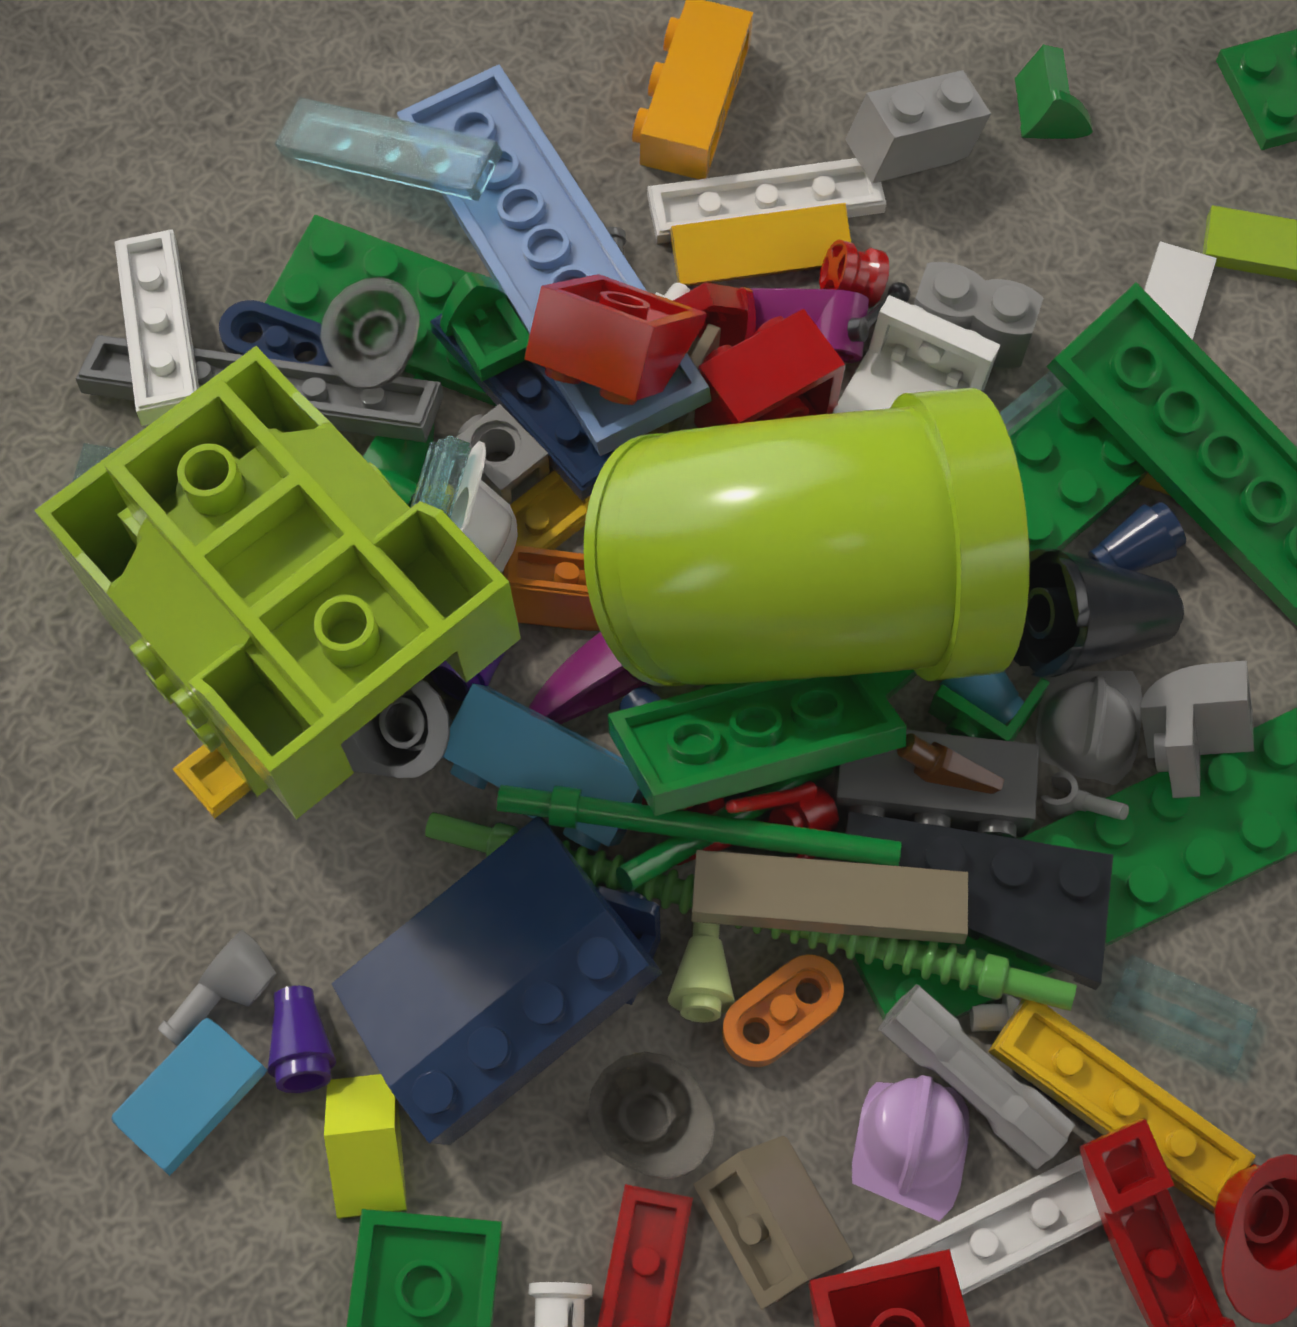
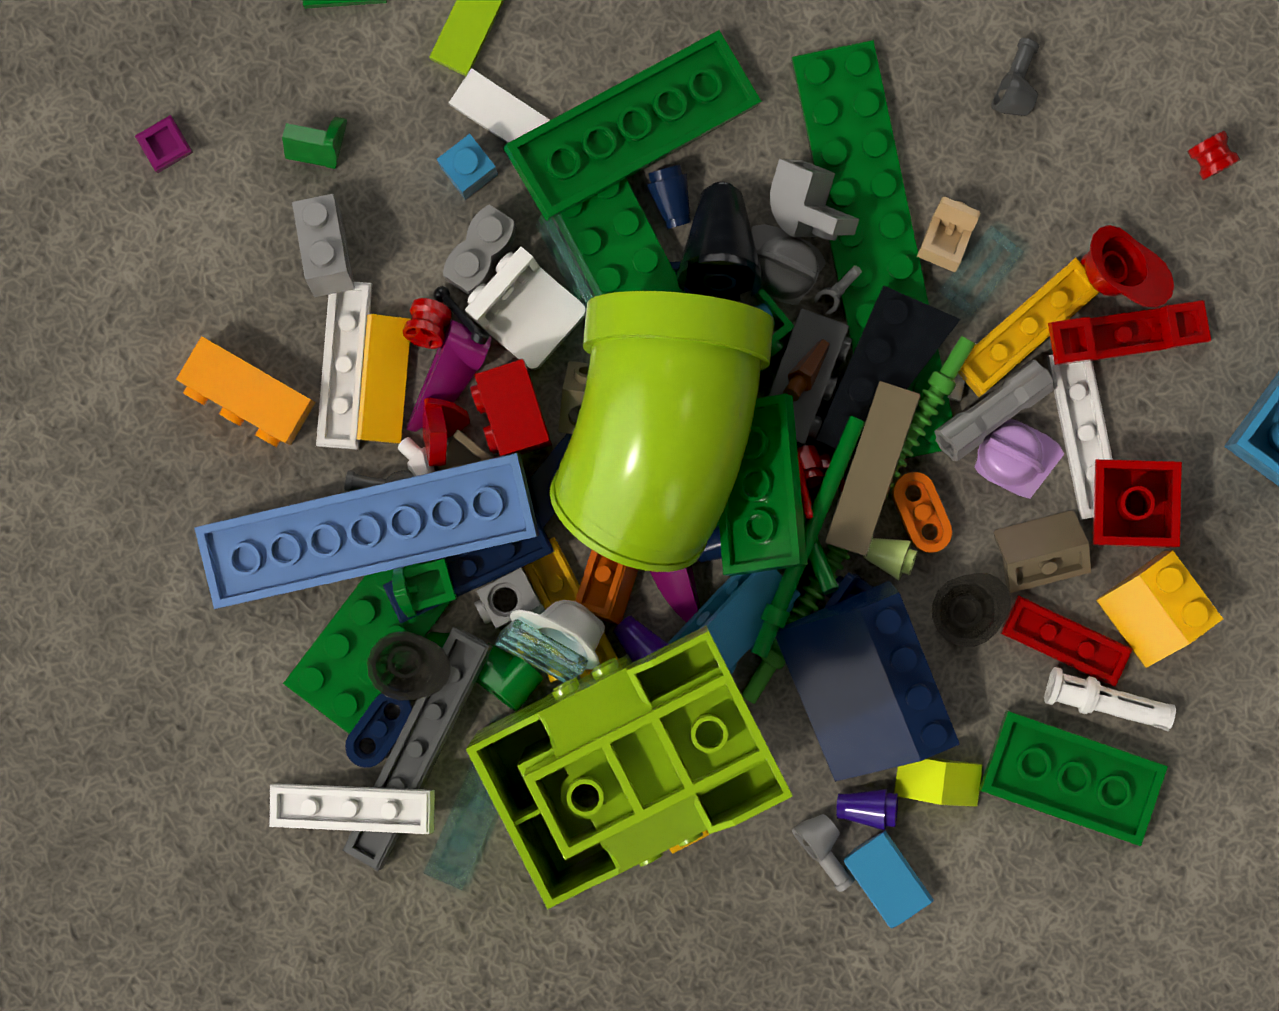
camera: 75 degrees left, 20 degrees up
(389, 148) = (248, 622): clear light blue tile -> none
(610, 336) = (466, 506): red slope -> none
(1083, 274) = (467, 166): none -> dark azure brick
(1222, 944) = (948, 234): none -> tan bracket

